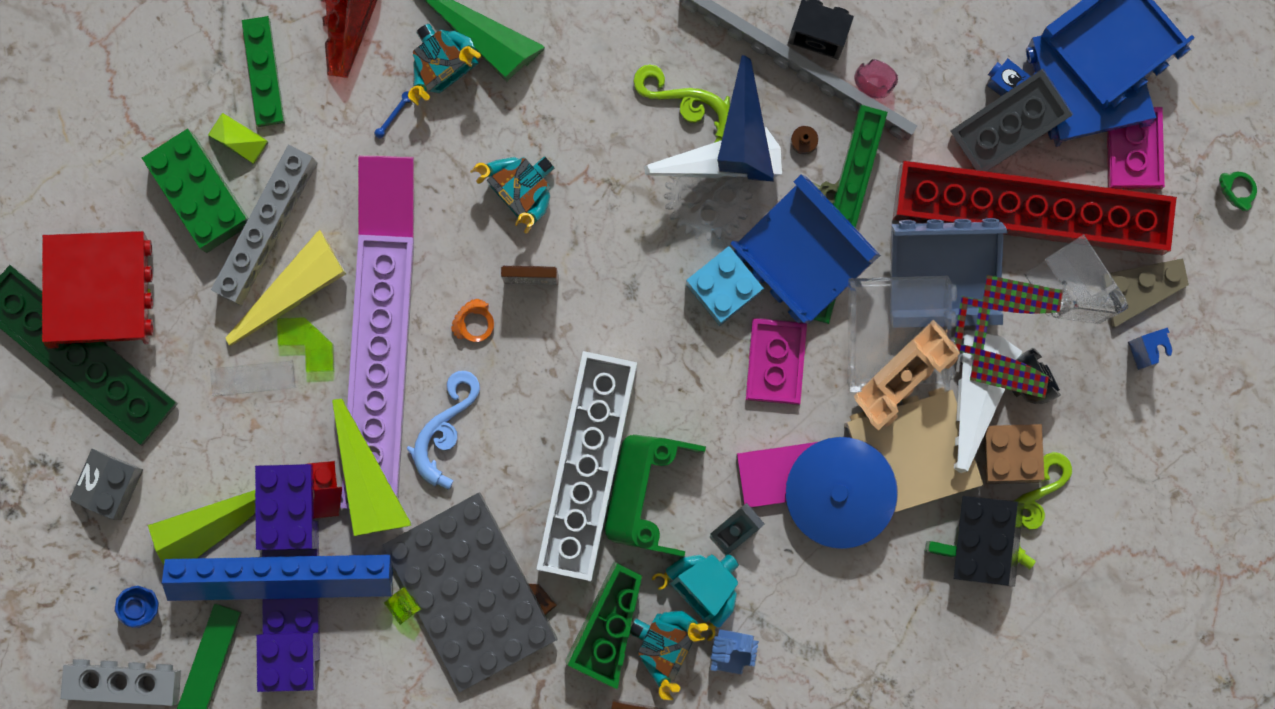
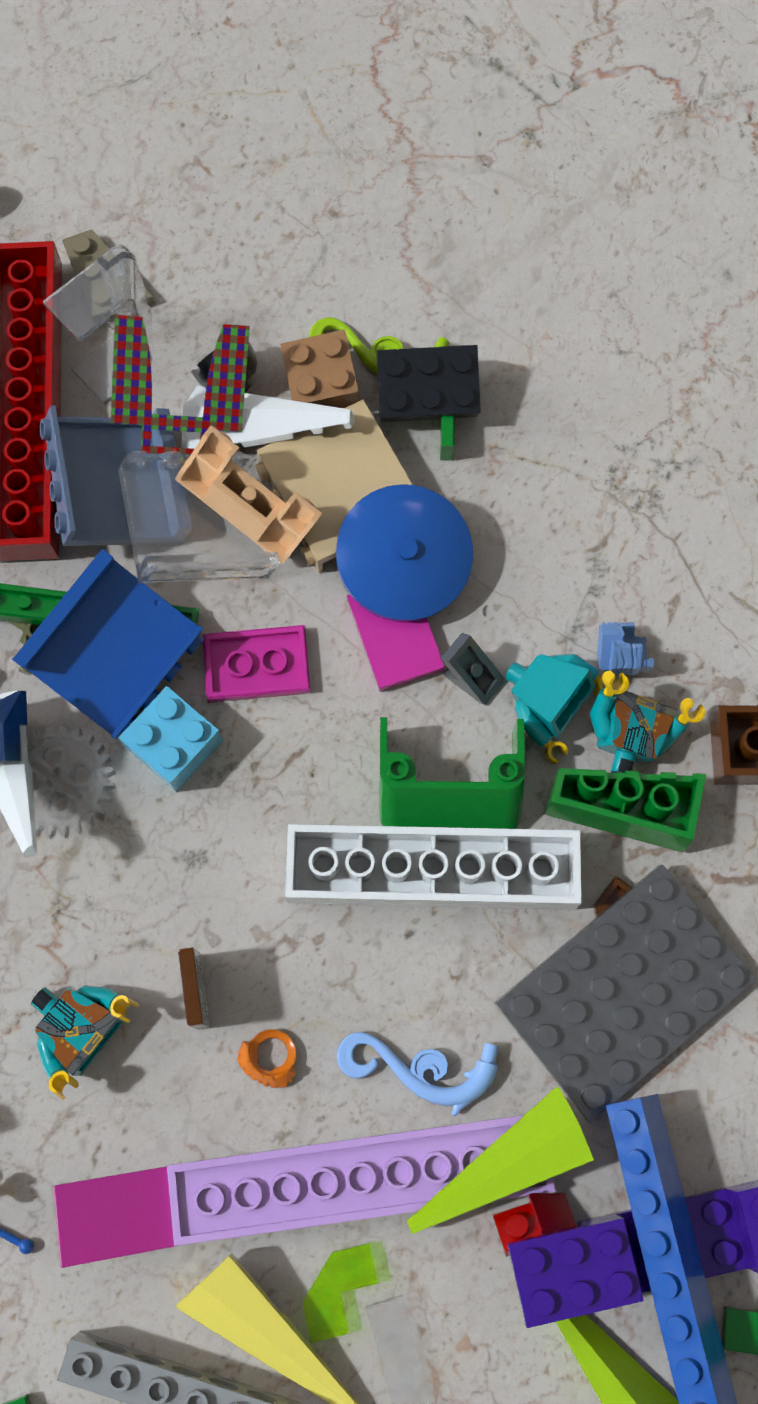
camera: 100 degrees left, 10 degrees down
(402, 605) = (665, 1077): clear neon green plate -> none
(1145, 348) = (171, 251): blue hinge -> none

